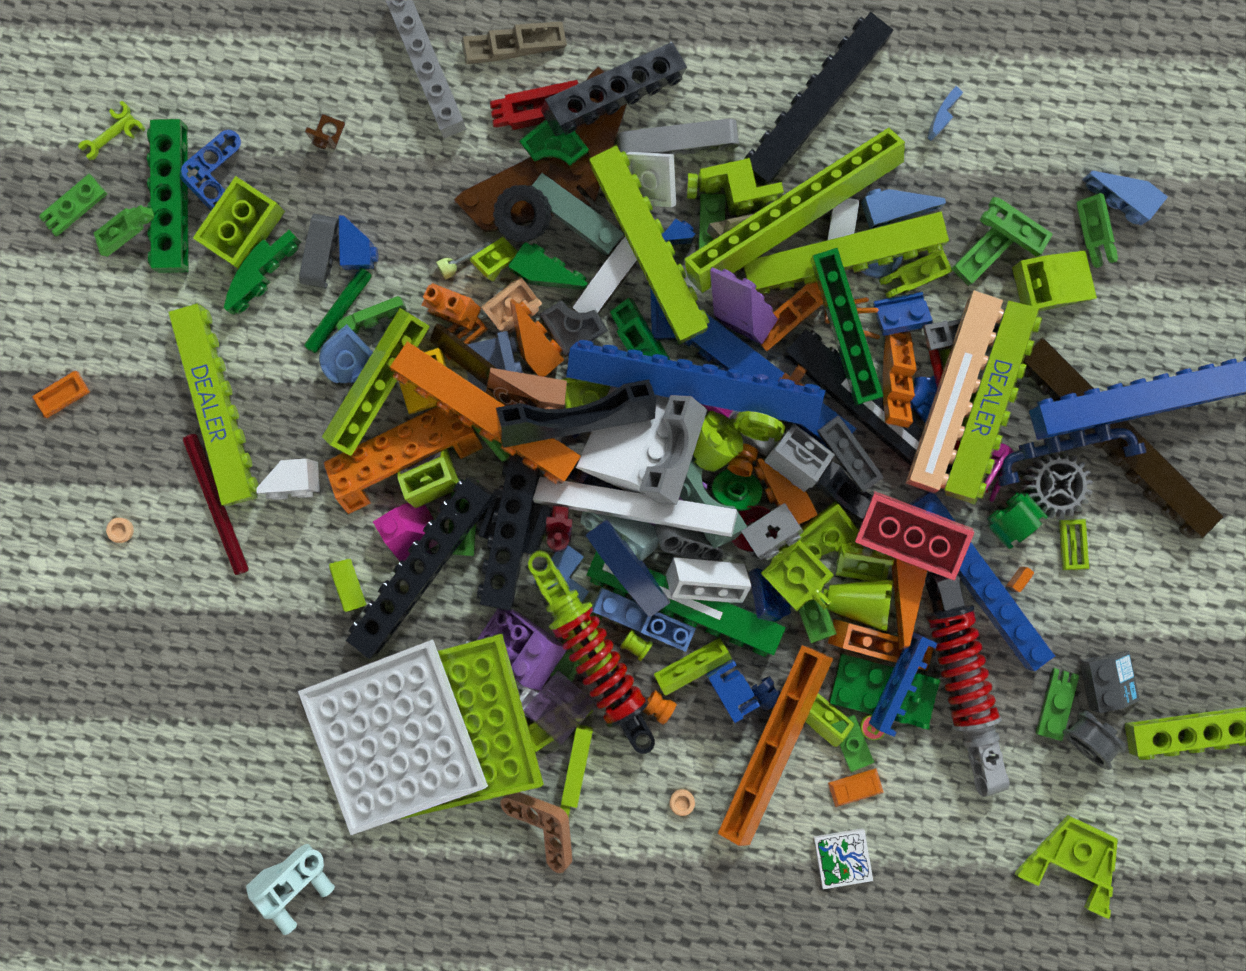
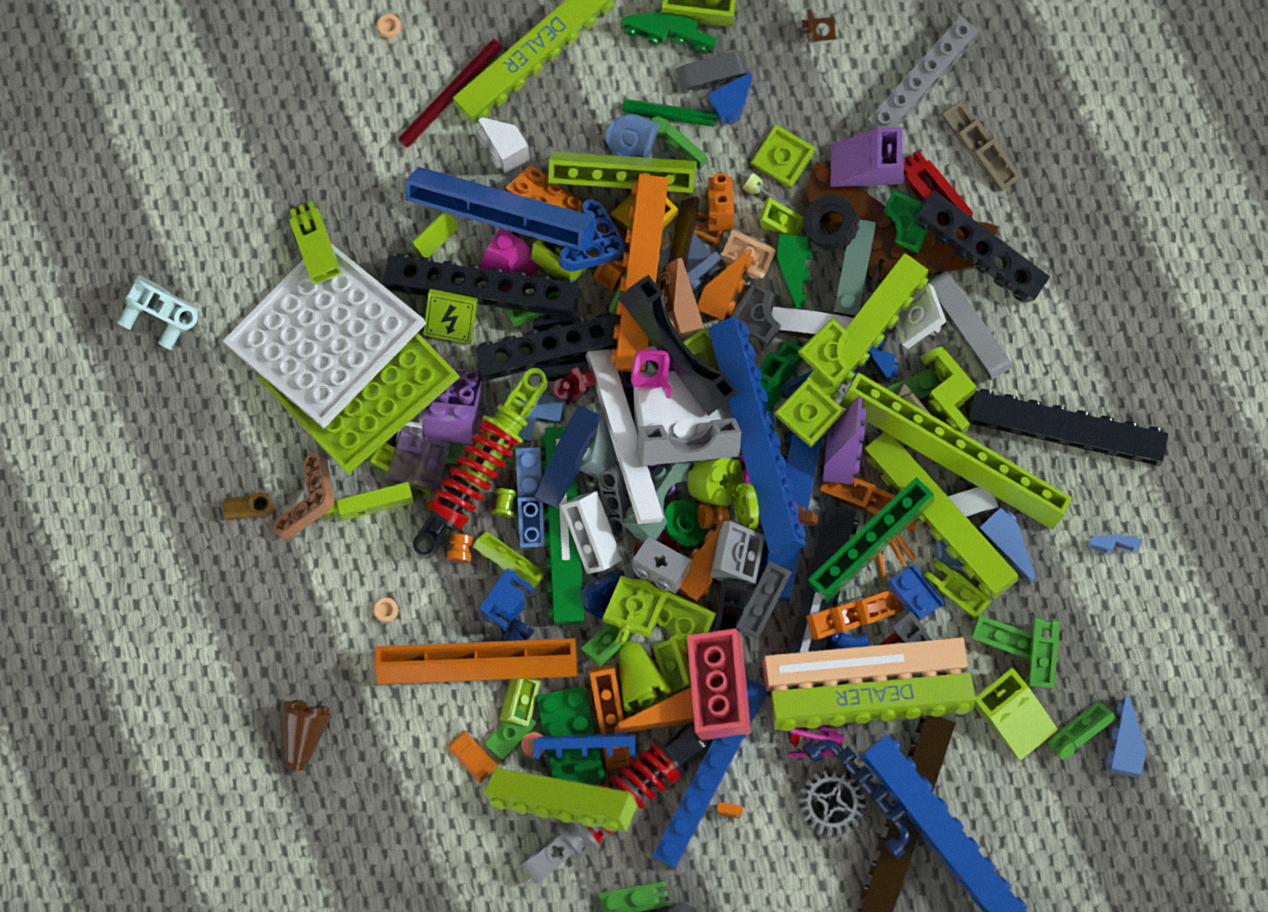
camera: 65 degrees right, 10 degrees down
(303, 704) = (315, 246): none -> lime hinge
(355, 514) = (500, 208): none -> blue brick
(433, 227) = (783, 156): none -> lime tile
(434, 610) = (450, 316): none -> lime tile
(437, 437) = (600, 244): none -> blue beam
(478, 148) = (869, 159): none -> medium lavender slope
(522, 887) = (245, 506): none -> pearl gold piece
(597, 449) = (657, 380): none -> dark pink piece
(649, 278) = (826, 353): none -> lime tile
(700, 323) = (809, 412): none -> lime tile
(760, 937) = (301, 731): none -> reddish brown cone
(843, 858) = (404, 774): tile -> none
(950, 733) = (561, 799): none -> lime brick
(1016, 520) = (780, 777): green brick -> none
(1073, 544) = (767, 857): lime tile -> none

